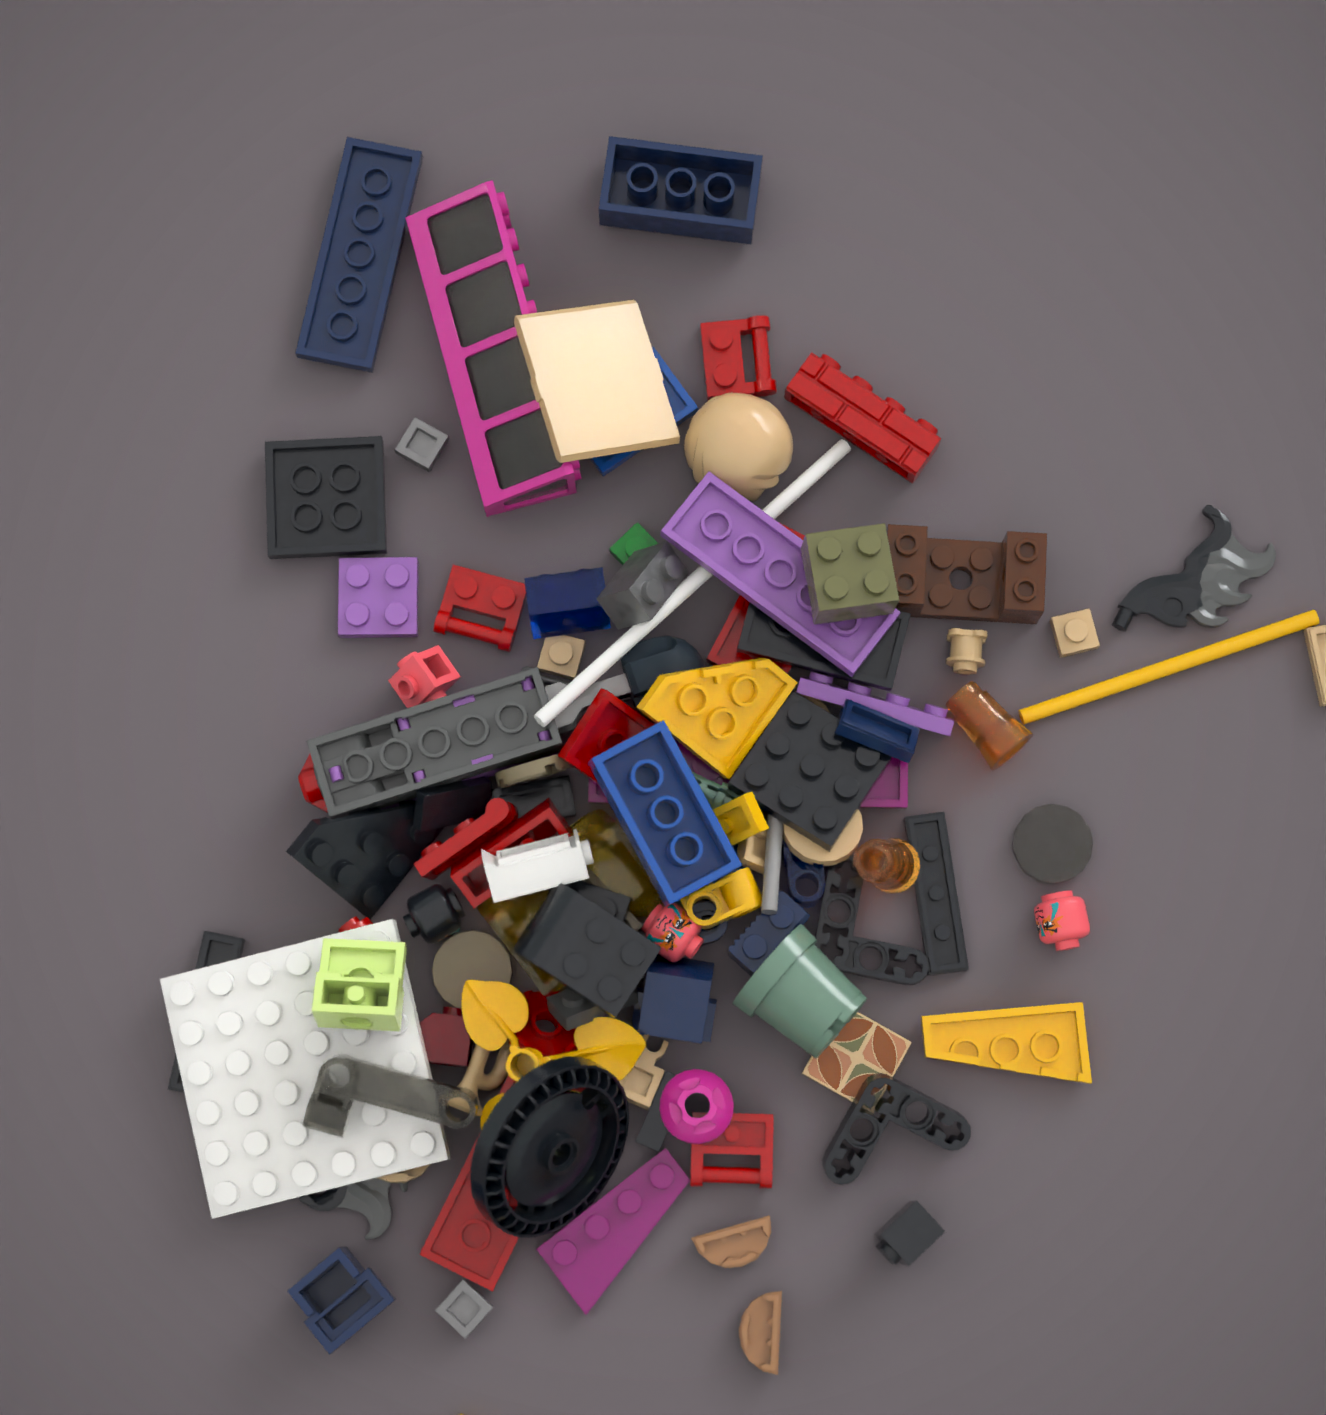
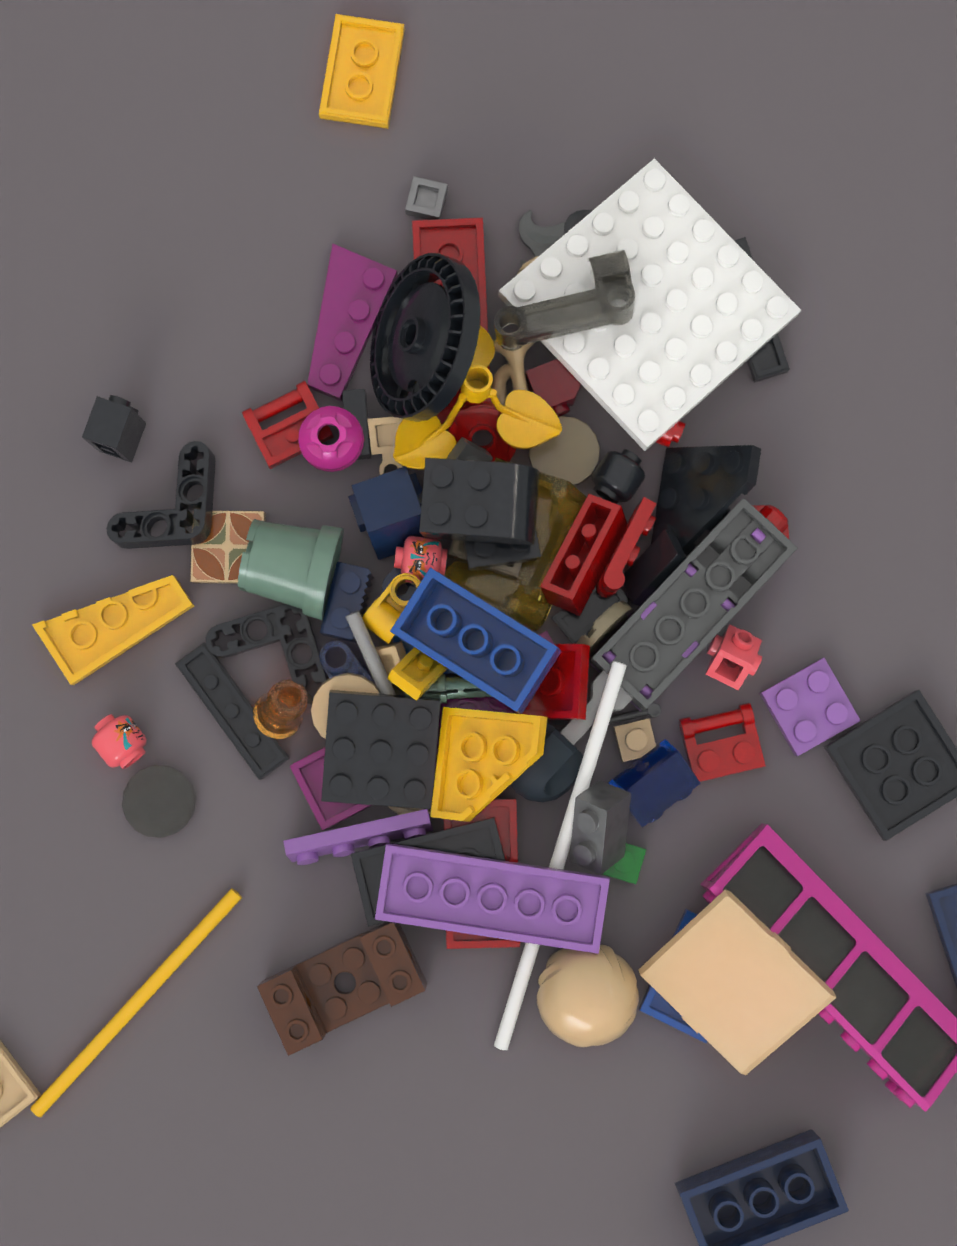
camera: 155 degrees right, 5 degrees up
(340, 1298) = (524, 152): dark blue plate -> none
(360, 985) = (634, 360): yellowish green brick -> none
(422, 444) = (848, 853): flat silver plate -> none
(537, 866) = (556, 546): white window -> none
(724, 357) = (641, 1067): red plate -> none
(735, 1244) = (247, 355): medium nougat plate -> none
(761, 1331) = (193, 303): medium nougat plate -> none
(849, 573) = (432, 926): olive brick -> none
(863, 417) = (498, 1079): red brick -> none
(877, 730) = (343, 811): dark blue tile -> none
(966, 650) = (308, 922): tan brick -> none
(988, 724) = (259, 869): clear orange plant -> none
(1074, 633) = (228, 988): tan plate -> none
(1207, 583) = (140, 1090): piece -> none

